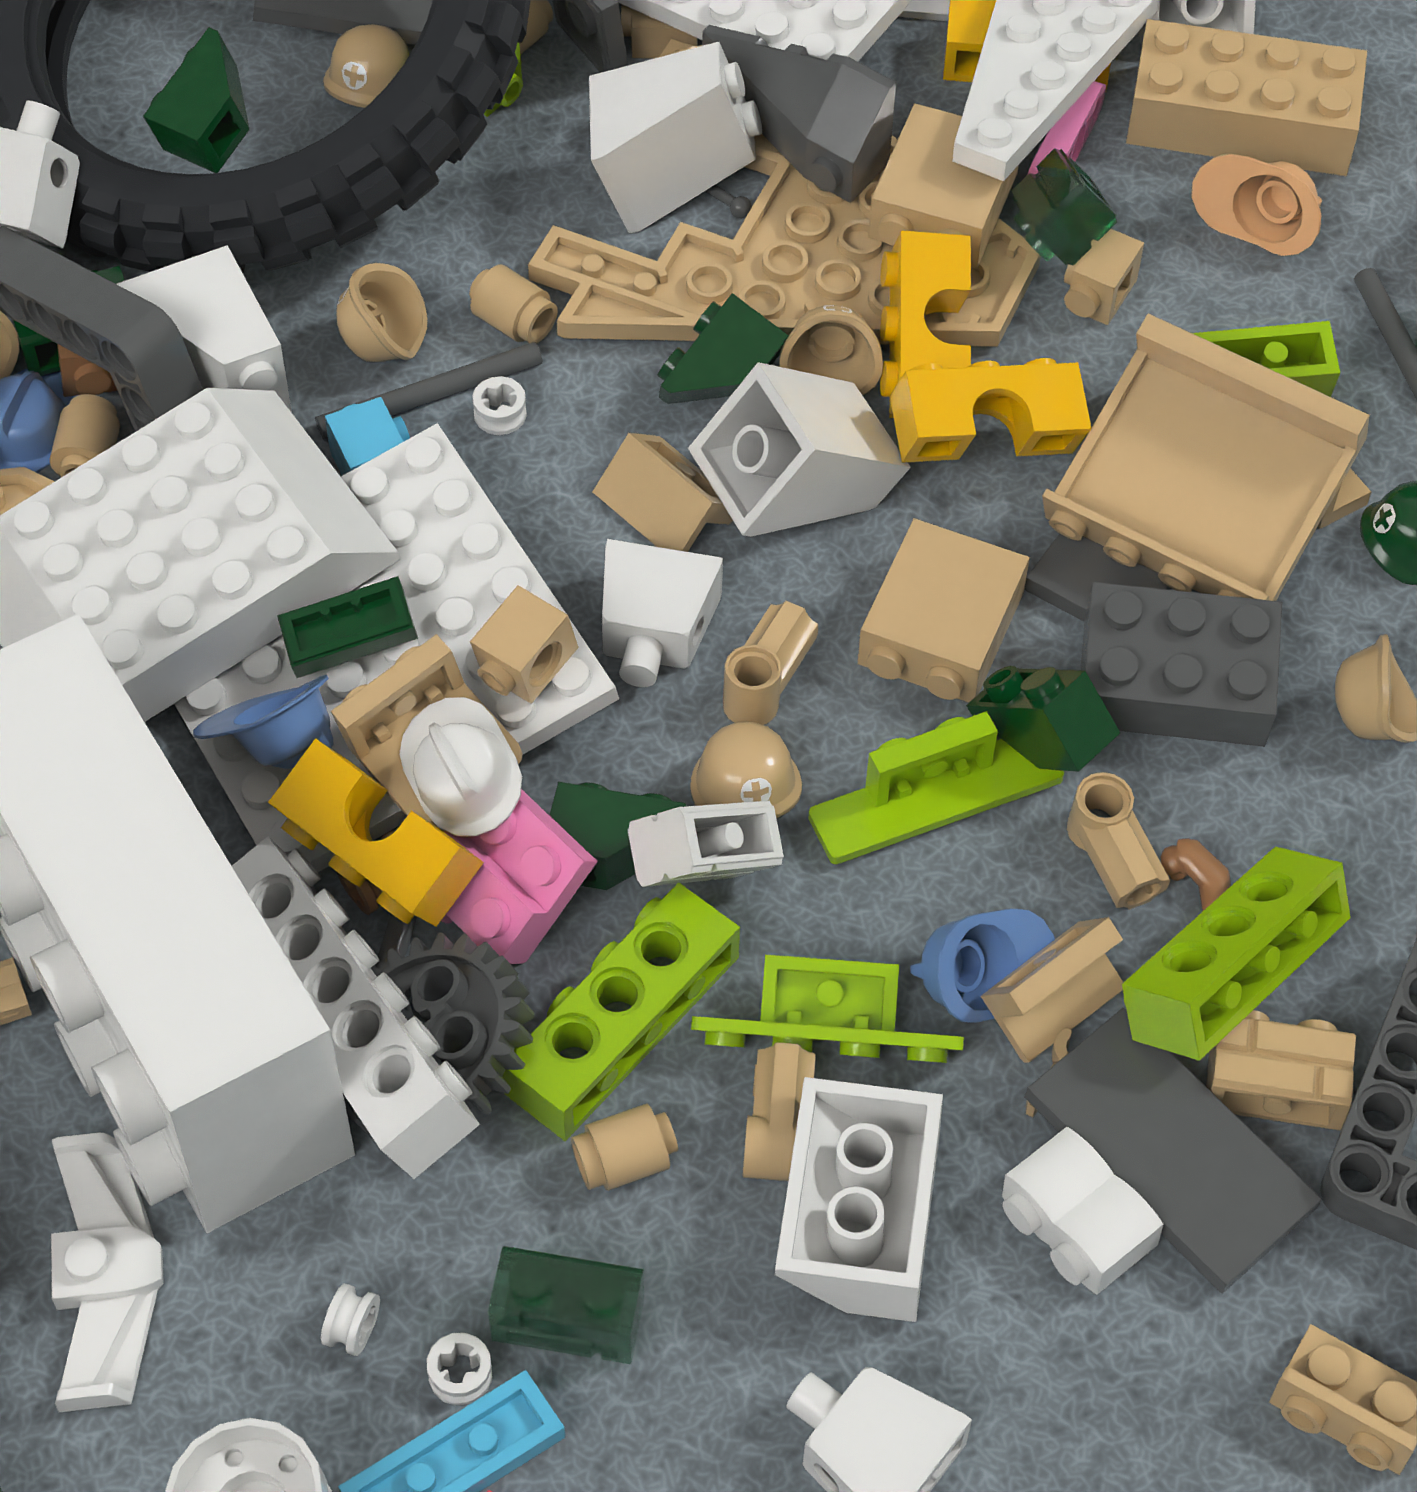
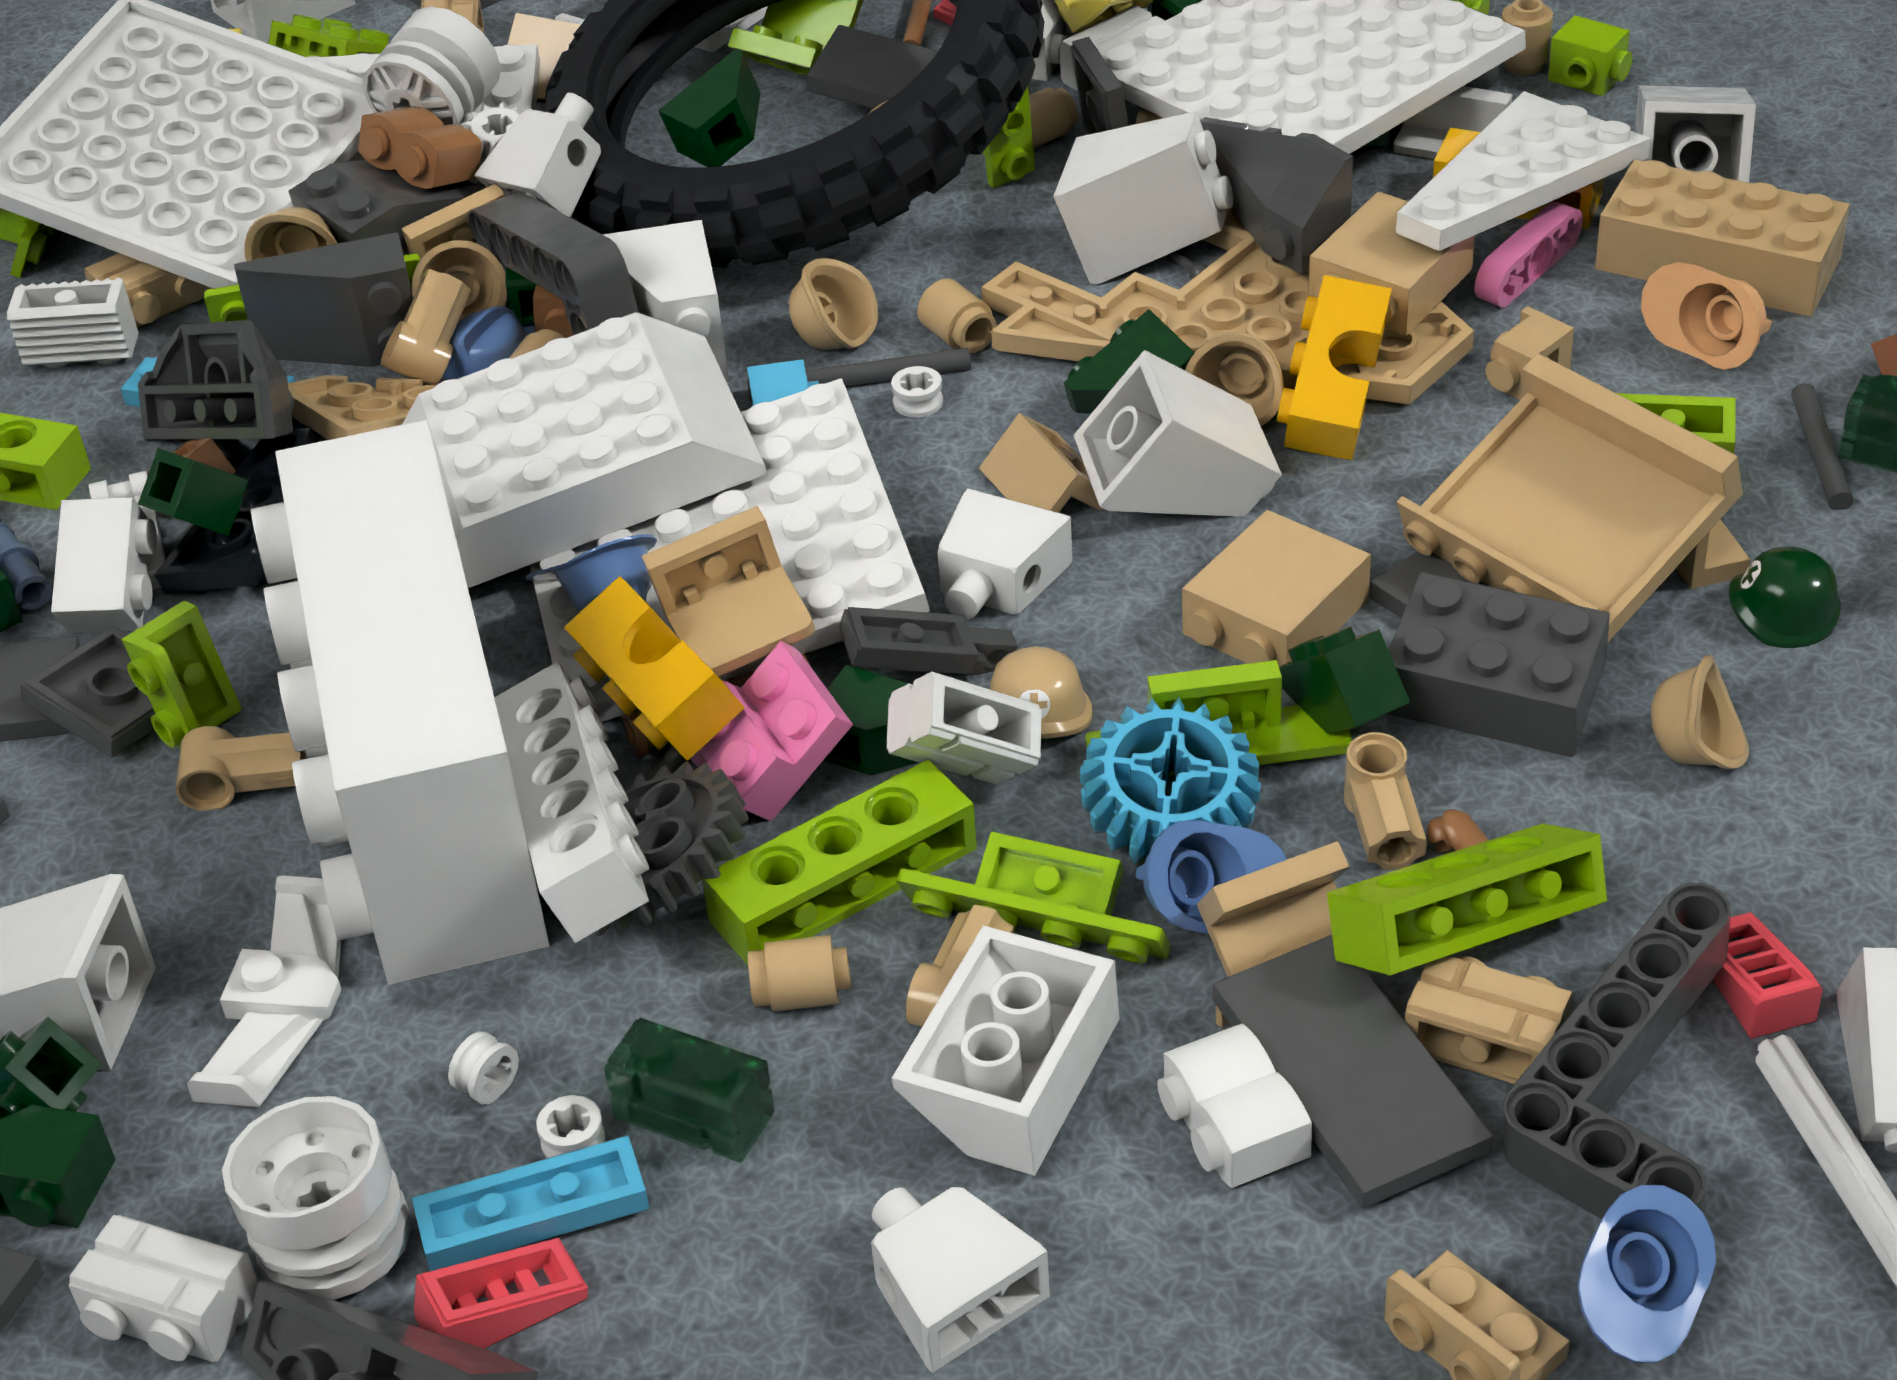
camera: 20 degrees right, 15 degrees down
(347, 627) = (687, 510): dark green plate -> none
(461, 767) = (750, 627): white piece -> none
(523, 645) = (844, 539): tan brick -> none
(619, 735) = (922, 642): none -> dark grey hinge
(766, 663) = (1078, 615): tan piece -> none
(914, 809) = (1132, 763): none -> medium azure gear
(1036, 401) = (1413, 427): yellow arch -> none
(1061, 209) = (1498, 292): clear green brick -> none

